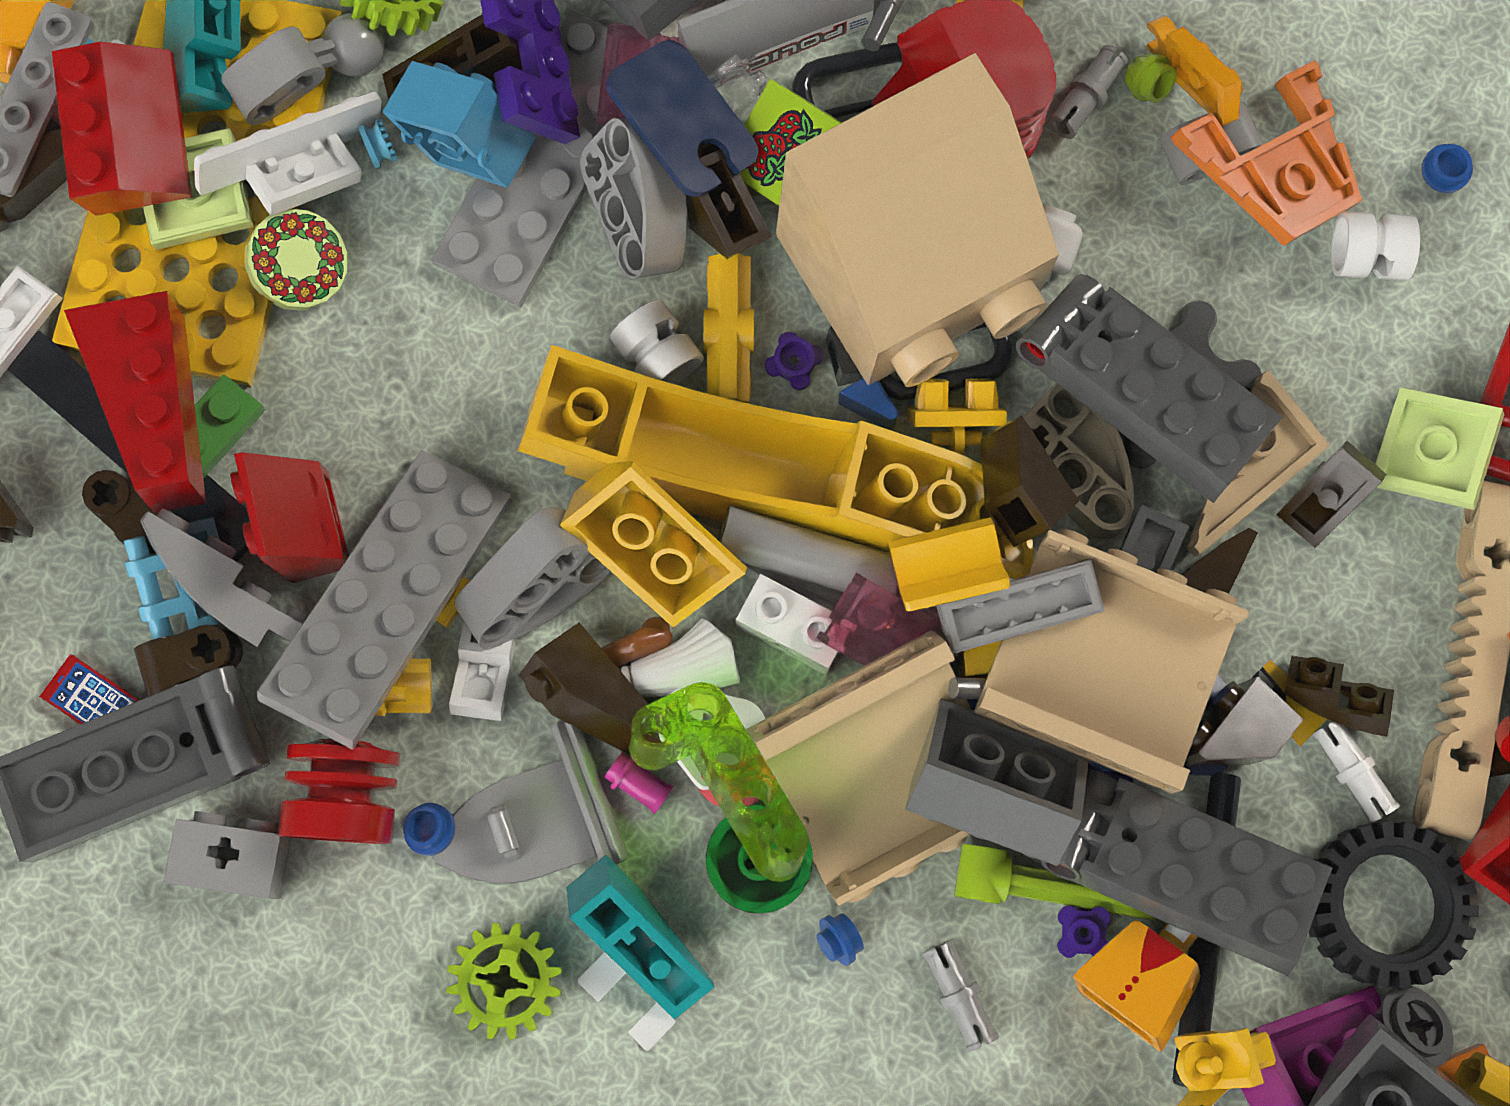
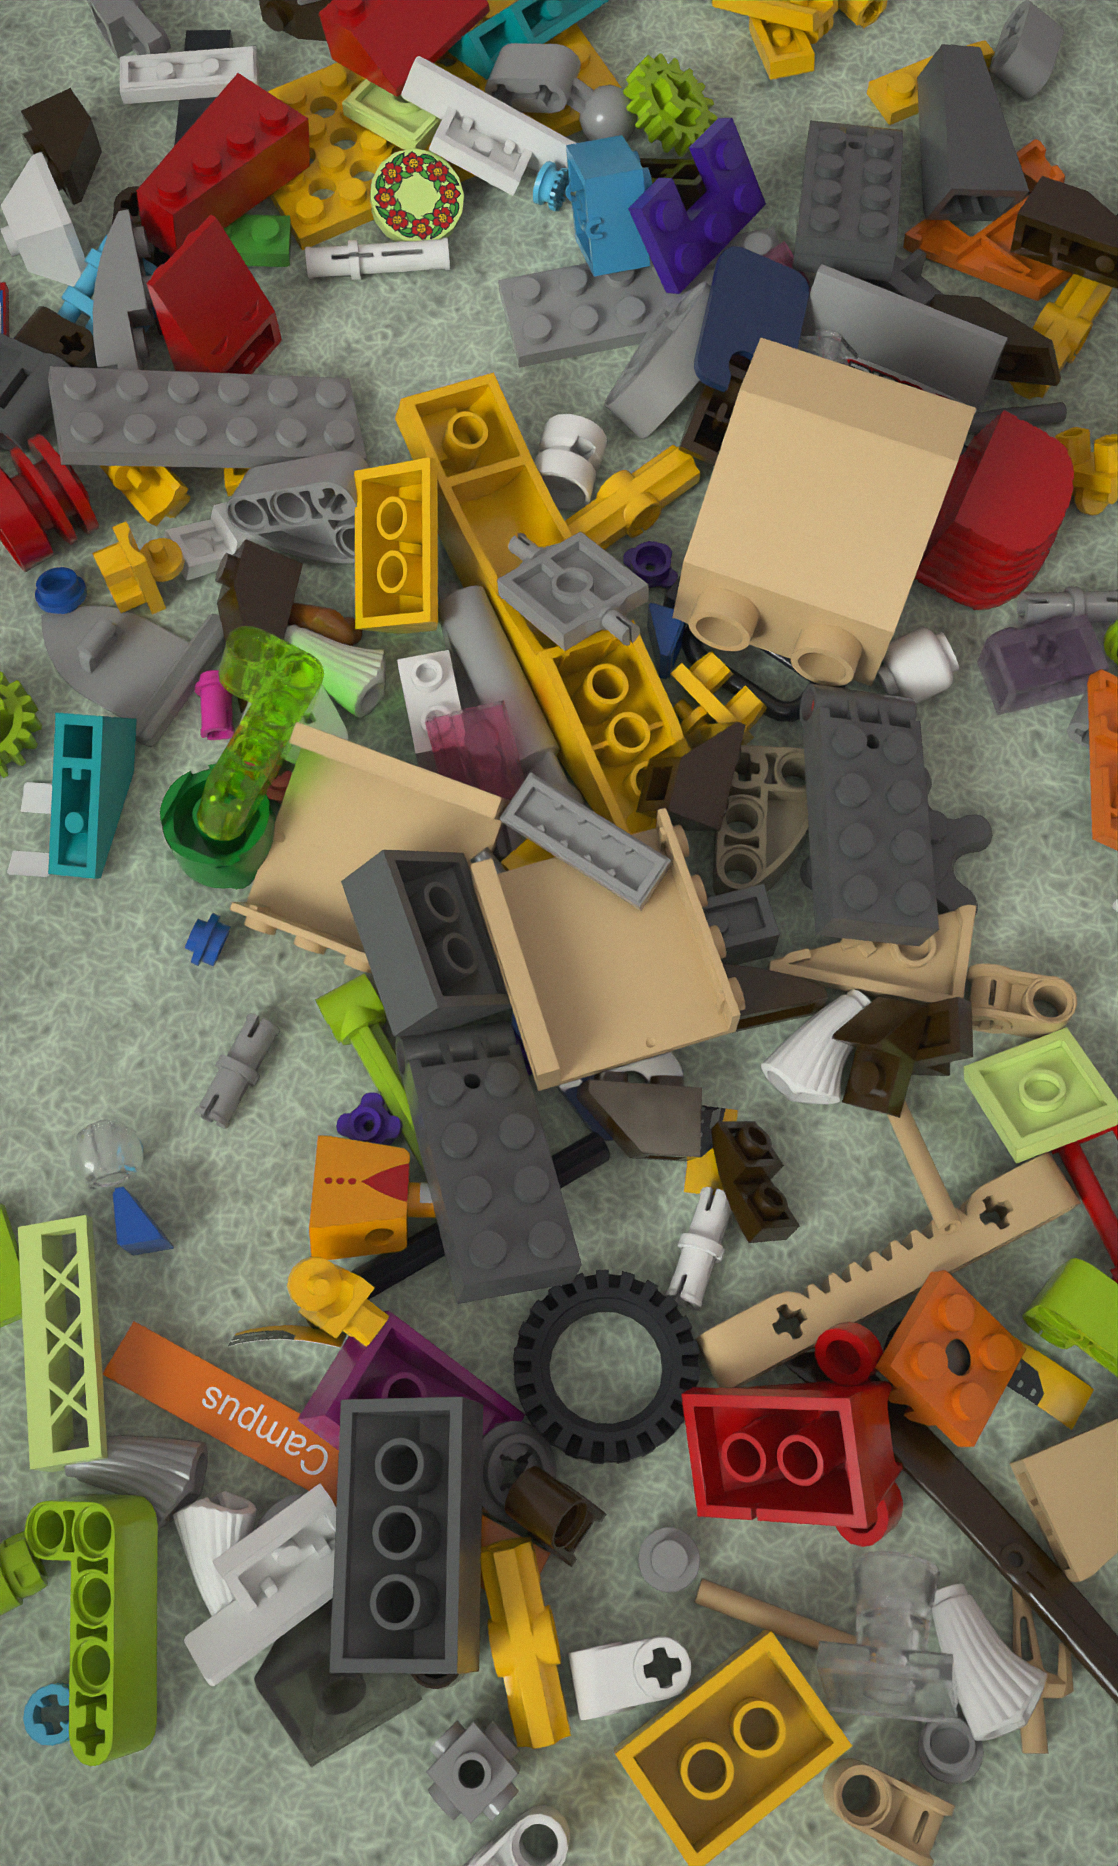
camera: 55 degrees right, 10 degrees down
(57, 584) = (41, 225): none -> white slope
(357, 288) = (377, 258): none -> white pin
(477, 751) = (134, 573): none -> yellow hips
(806, 446) = (573, 590): none -> light grey plate
(948, 564) = (574, 763): yellow panel -> none
(1133, 132) = (1040, 662): none -> clear purple brick
(1281, 574) = (811, 1062): none -> white piece
(1323, 526) = (886, 1051): none -> dark brown slope
(1350, 408) = (1012, 1001): none -> tan piece
(1418, 570) = (925, 1172): none -> tan piece
(1471, 1021) = (551, 1512): none -> dark brown piece

